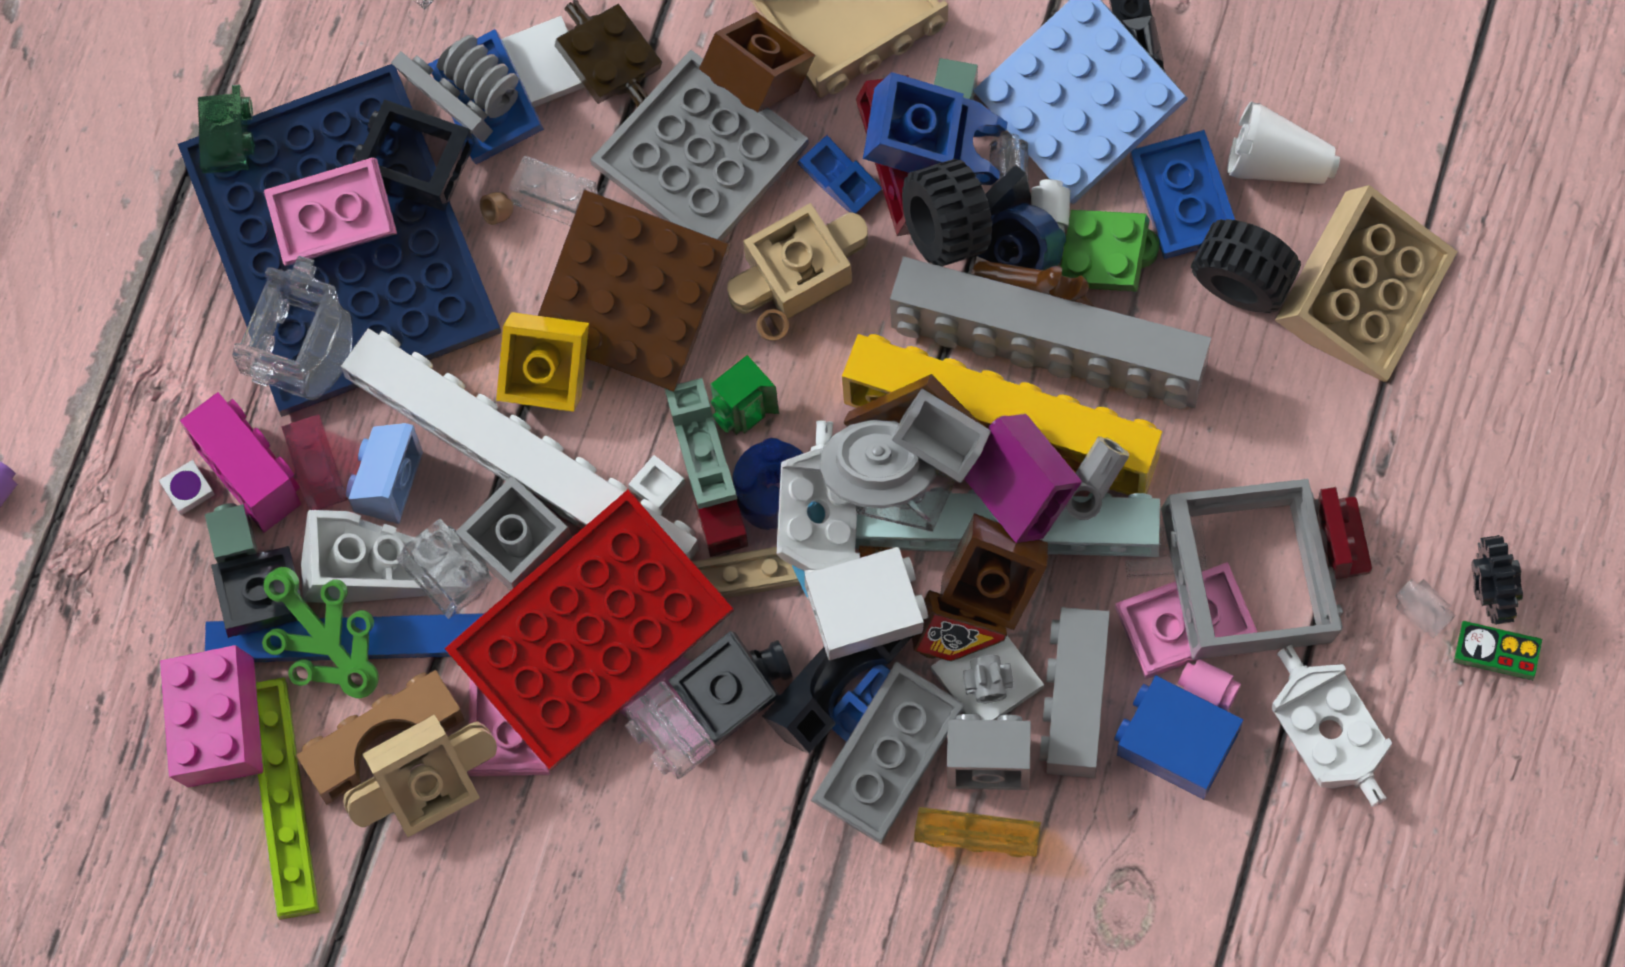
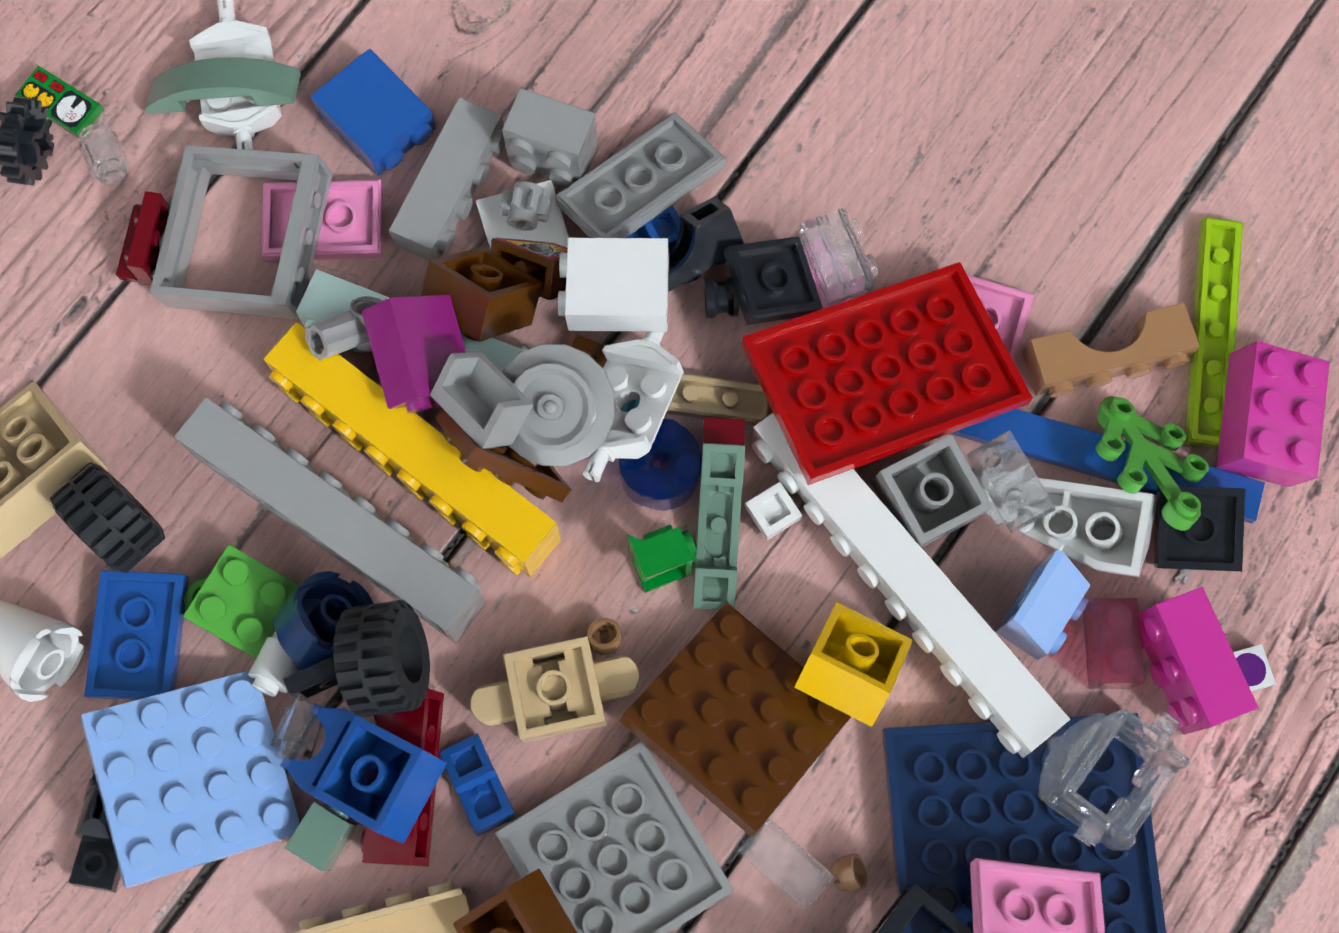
camera: 170 degrees left, 5 degrees up
(231, 532) = (1222, 590): sand green brick -> none
(429, 789) = (1085, 287): tan brick -> none
(977, 832) = (586, 89): clear yellow plate -> none
(1043, 281) = (300, 543): reddish brown piece -> none
(1210, 683) = (327, 142): bright pink brick -> none
(1336, 706) = (221, 78): none -> sand green slope

